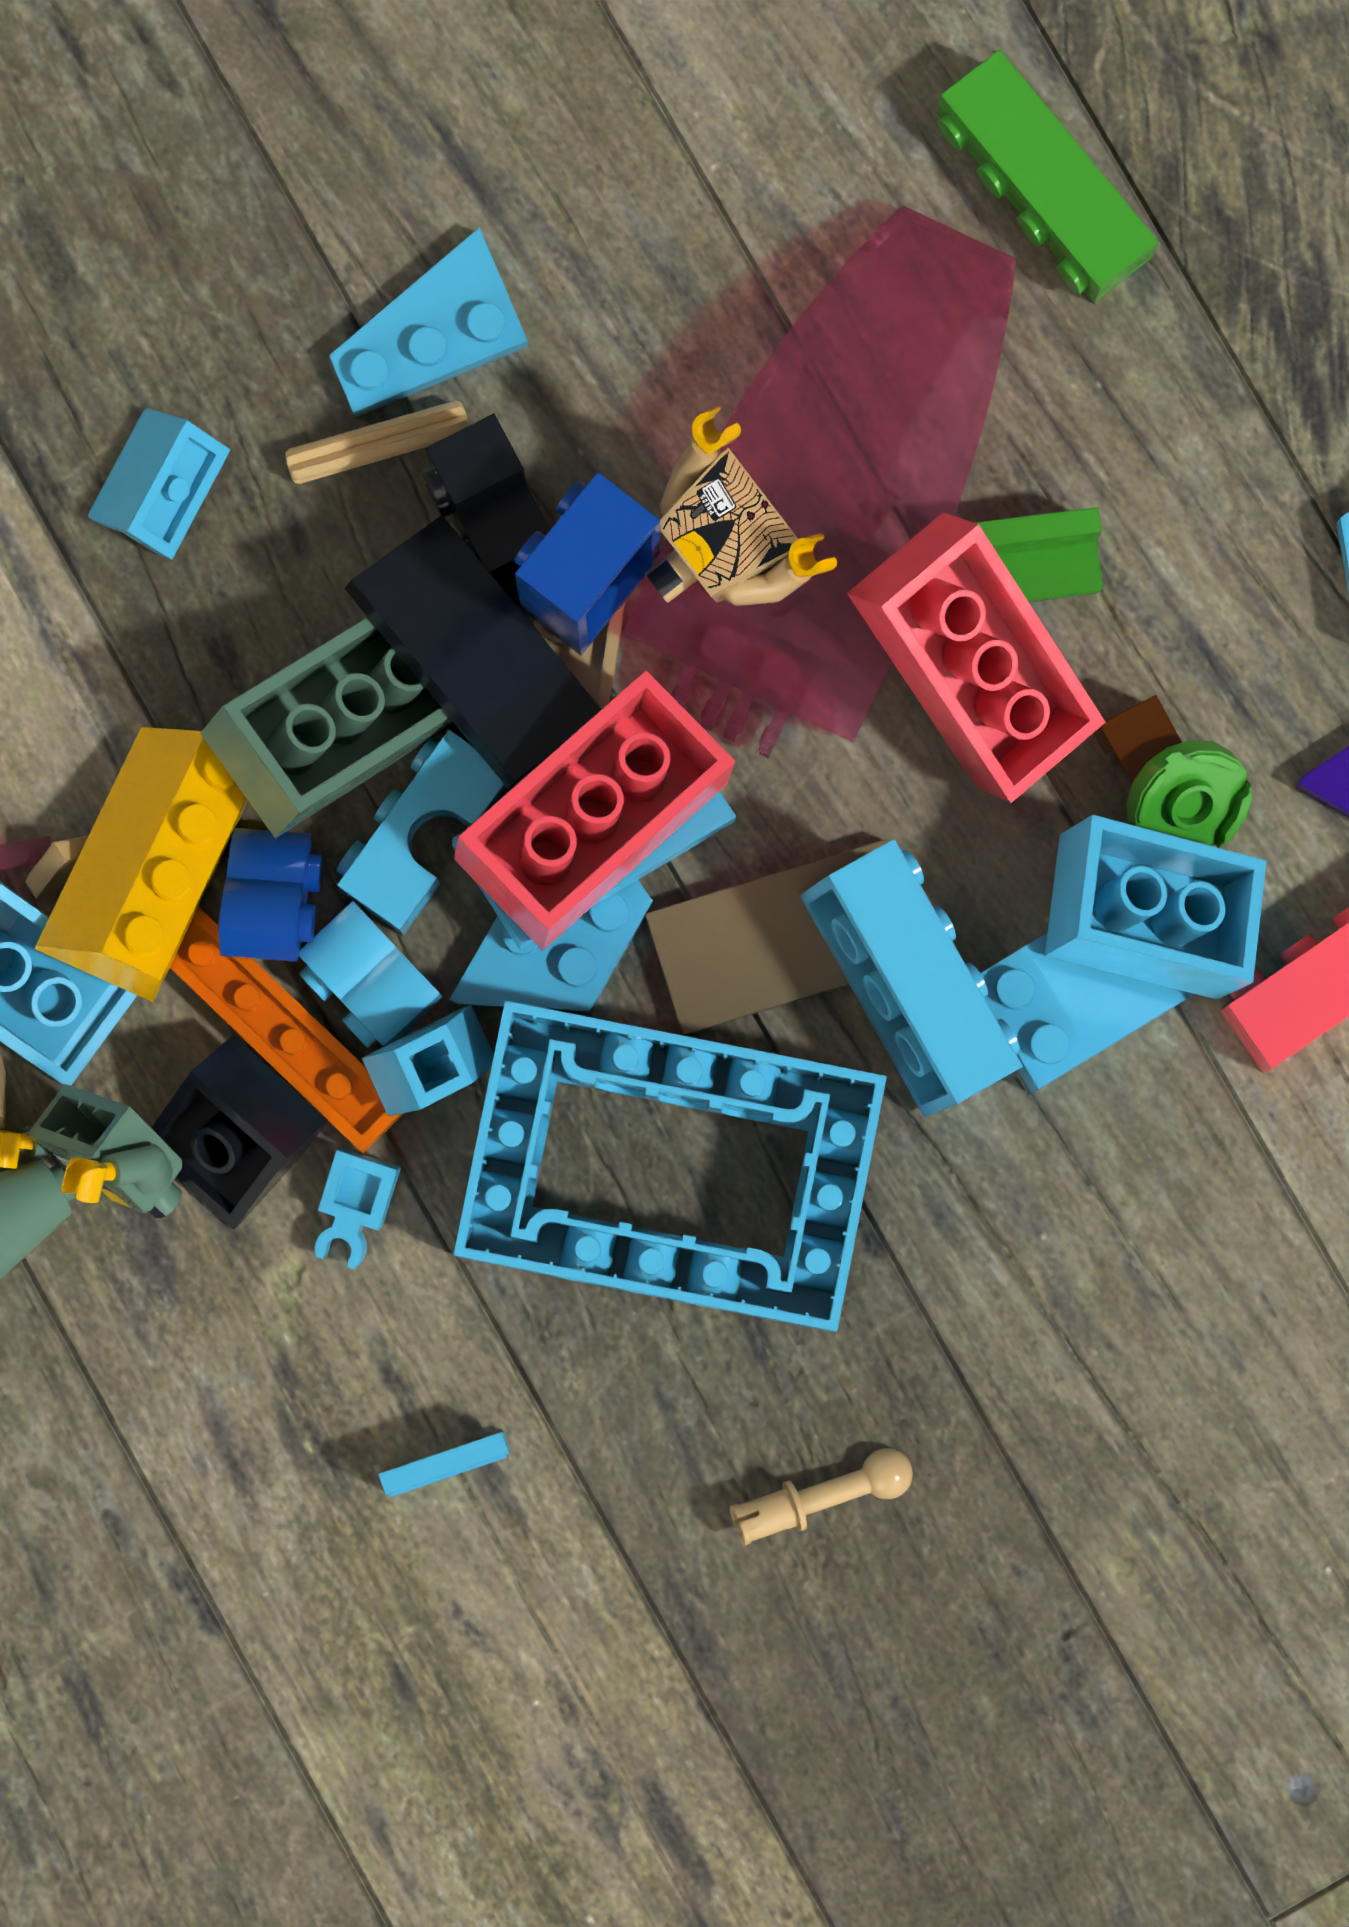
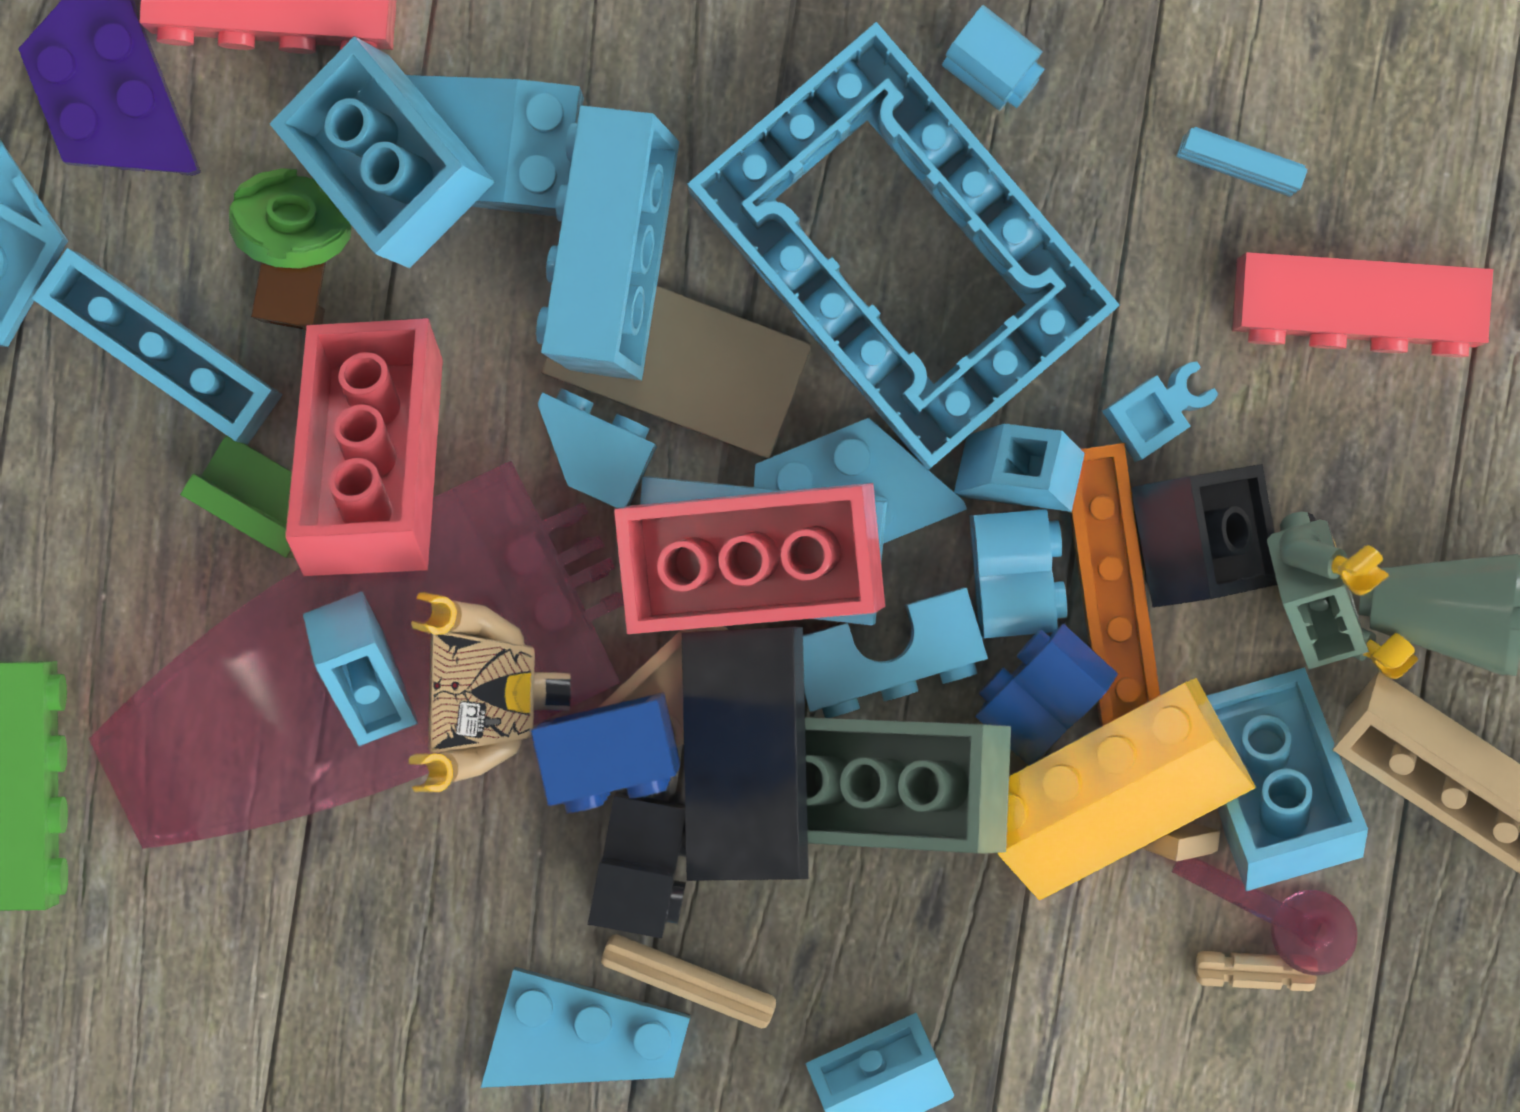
camera: 140 degrees left, 5 degrees up
(253, 1426) = (1362, 302): none -> coral brick
(715, 1380) = (994, 60): none -> medium azure brick
(790, 805) = (594, 454): none -> medium azure slope
(840, 472) = (359, 668): none -> medium azure slope
(1212, 612) = (157, 346): none -> medium azure brick

